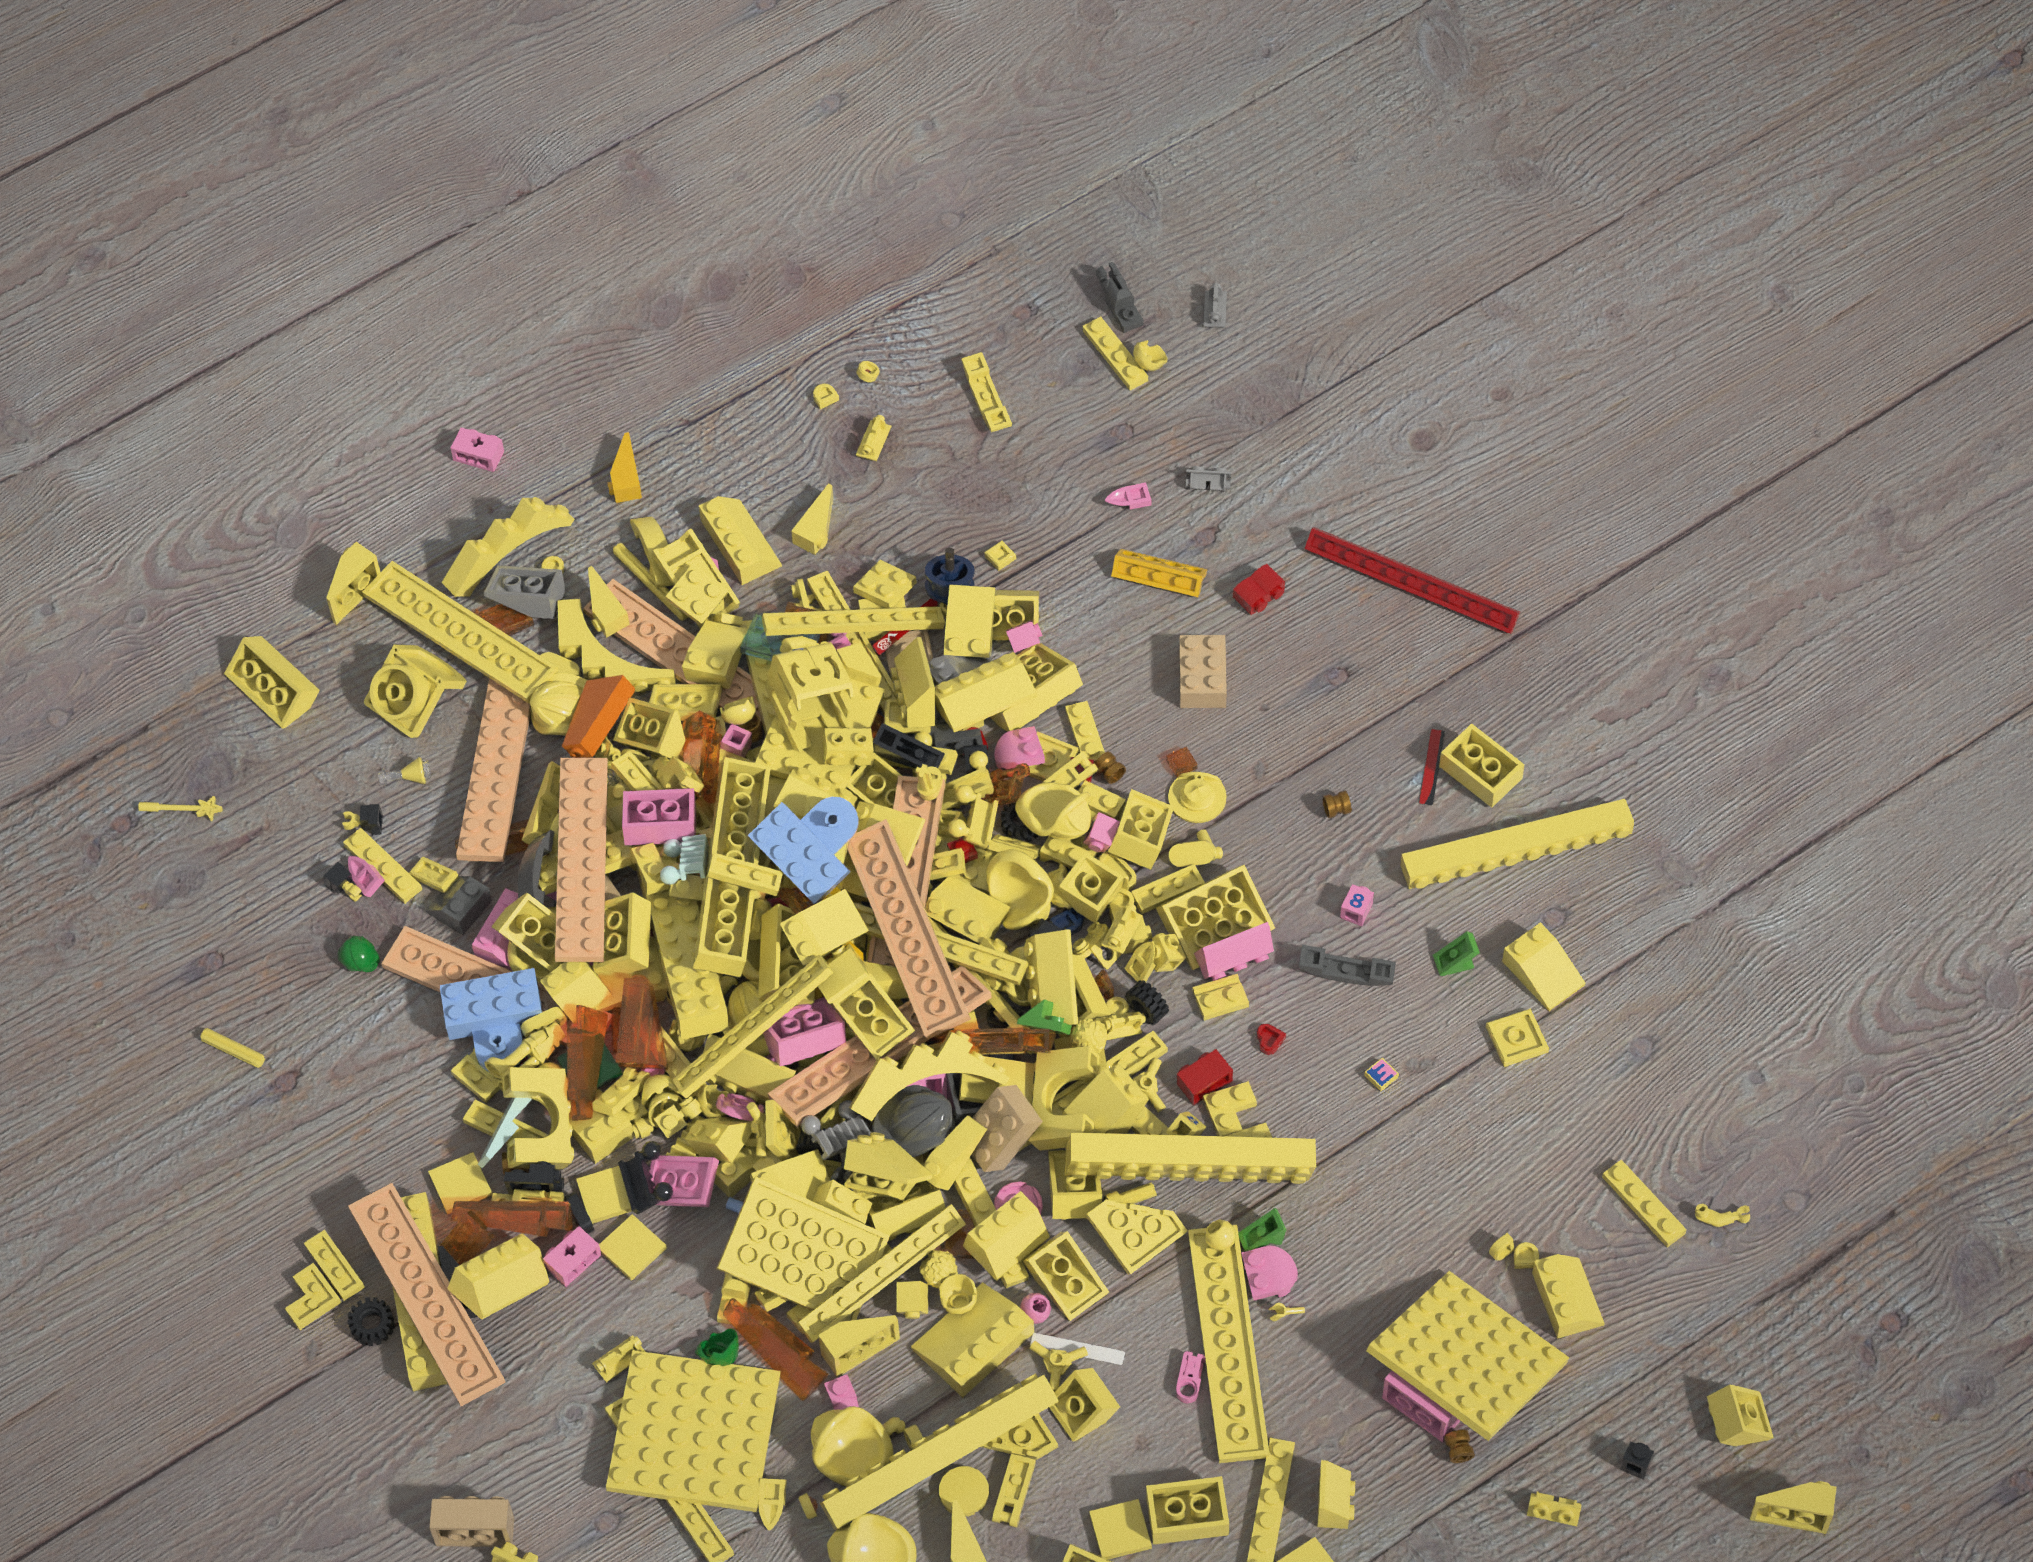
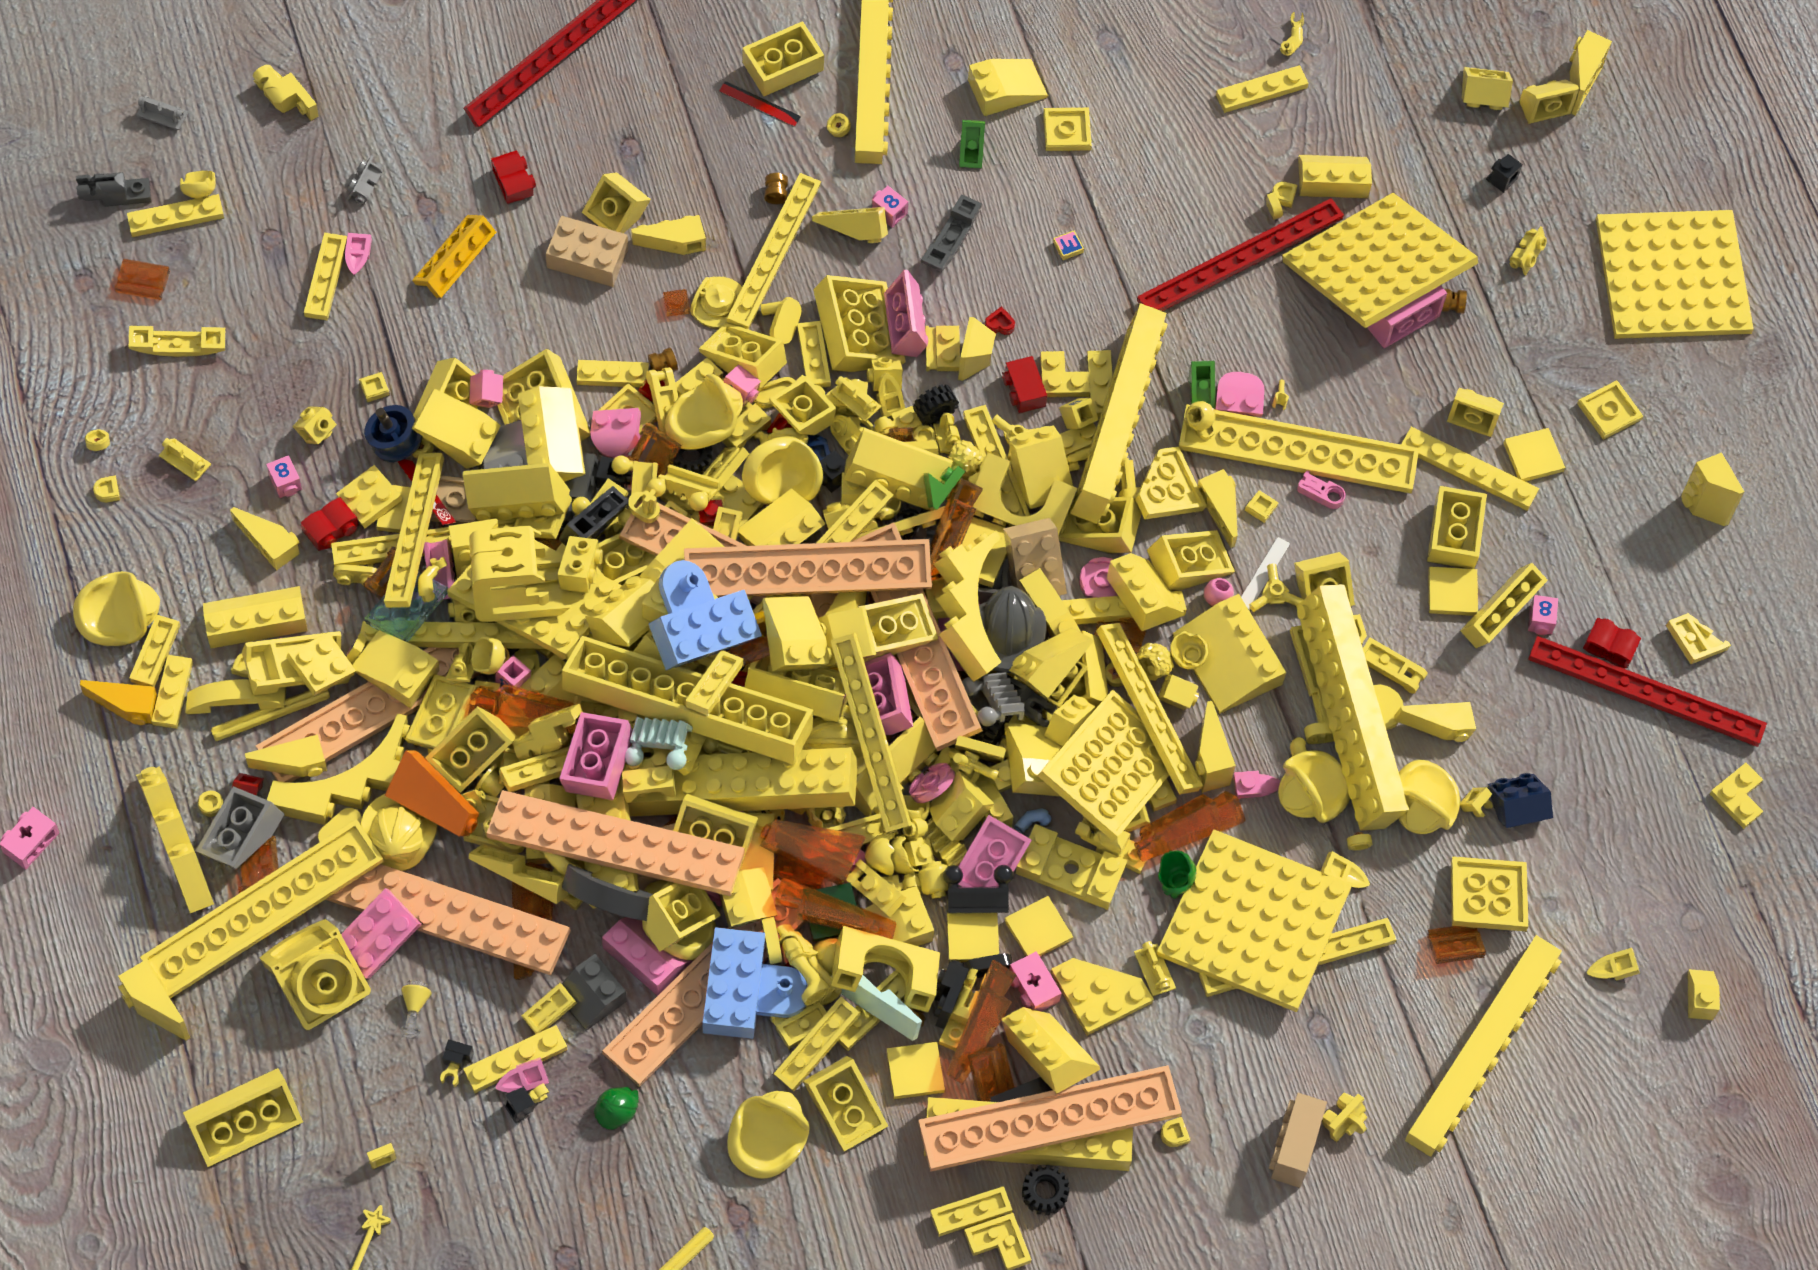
camera: 80 degrees left, 5 degrees up
(263, 792) = (381, 1156): none -> light yellow tile
(359, 1076) = (767, 1134): none -> light yellow piece
(409, 1131) = (845, 1103): none -> light yellow slope
(457, 1090) = (817, 1044): none -> light yellow plate
(459, 1419) = (1174, 1133): none -> light yellow tile
(462, 722) = (379, 932): none -> bright pink plate
(575, 585) = (248, 783): none -> red plate
(581, 1317) = (1099, 993): none -> light yellow plate
(648, 505) = (172, 691): none -> light yellow plate
(651, 1134) = (932, 880): none -> light yellow head
(680, 479) = (155, 651): none -> light yellow plate
(701, 1233) = (1049, 854): none -> light yellow piece
(705, 435) = (115, 609): none -> light yellow piece
(724, 695) = (461, 668): none -> light yellow hinge
(845, 563) = (329, 524): none -> red brick
(880, 515) = (284, 477): none -> bright pink brick
(939, 520) = (315, 424): none -> light yellow brick
(1041, 351) = (142, 279): none -> clear orange plate
(1094, 481) = (325, 276): none -> light yellow plate
(1120, 983) = (900, 419): none -> light yellow plate
(1139, 1286) = (1220, 499): none -> light yellow slope
(1152, 1327) = (1261, 506): none -> light yellow tile
(1219, 1016) = (976, 349): none -> light yellow slope
(1252, 742) = (674, 236): none -> light yellow slope
(1264, 679) = (615, 203): none -> light yellow slope
(1266, 822) = (773, 251): none -> light yellow plate
(1274, 389) = (285, 91): none -> light yellow plate
(1323, 879) = (857, 223): none -> light yellow slope
(1431, 1233) = (1242, 256): none -> red plate
(1432, 836) = (838, 125): none -> light yellow tile
(1745, 1477) = (1548, 100): none -> light yellow slope

